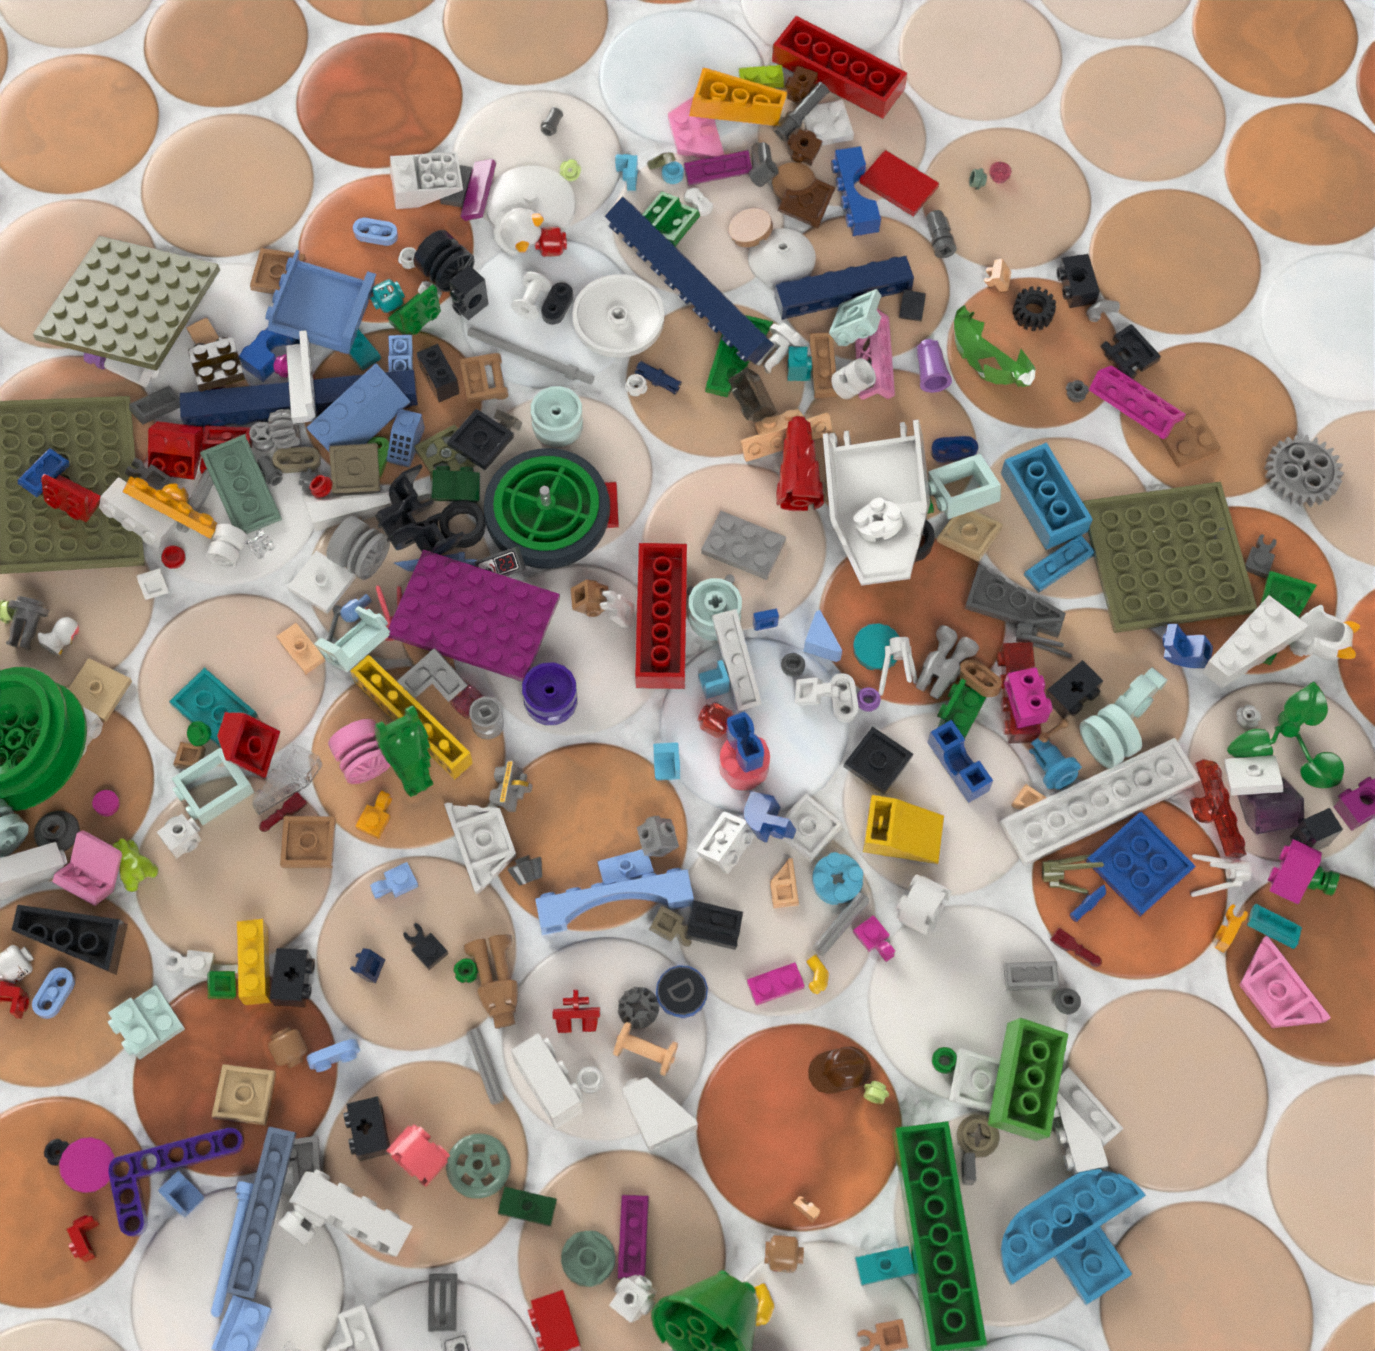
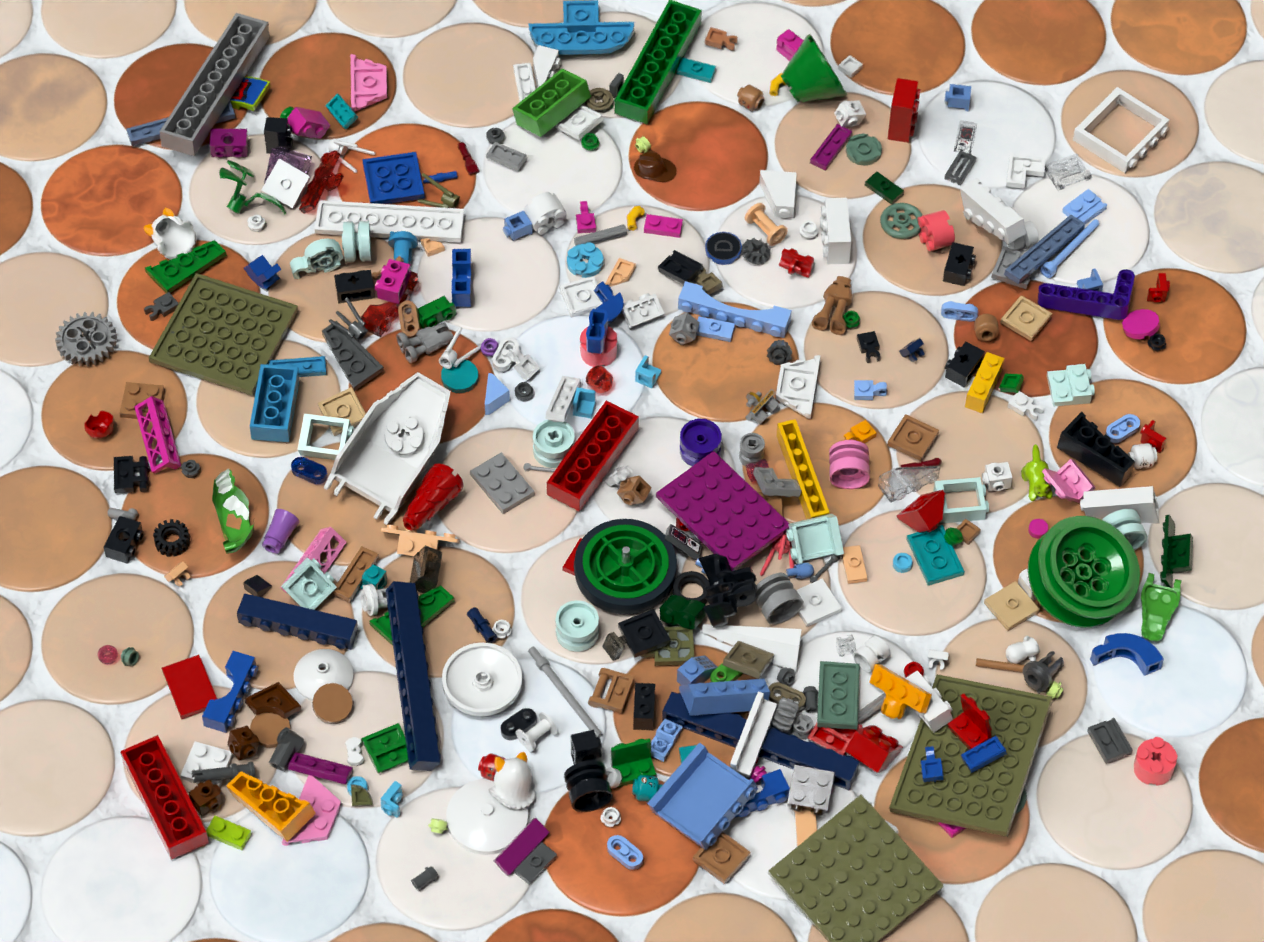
camera: 150 degrees left, 10 degrees down
(75, 615) = (999, 665): none -> medium nougat bar
(97, 441) = (932, 767): none -> blue plate
(152, 475) = (904, 733): dark grey plate -> none
(155, 405) = (874, 790): dark grey plate -> none
(246, 680) = (902, 562): none -> medium azure tile
(321, 486) = (779, 659): red plate -> none
(405, 748) = (811, 442): green animal -> none
(424, 178) = (560, 872): white slope -> none
(485, 1066) = (868, 266): light grey axle -> none
(765, 619) = (523, 423): blue tile -> none
(807, 1209) = (722, 111): light nougat tile -> none
(853, 378) = (345, 543): white wheel -> none
(878, 760) = (510, 308): black plate -> none
(902, 830) = (528, 261): yellow slope -> none
(942, 239) = (192, 628): dark grey axle -> none
(950, 866) = (517, 225): none -> medium blue brick
(1204, 381) = (100, 425): none -> red hair
(1227, 933) = (371, 120): light orange plate -> none
(1259, 637) = (221, 246): white wedge -> none

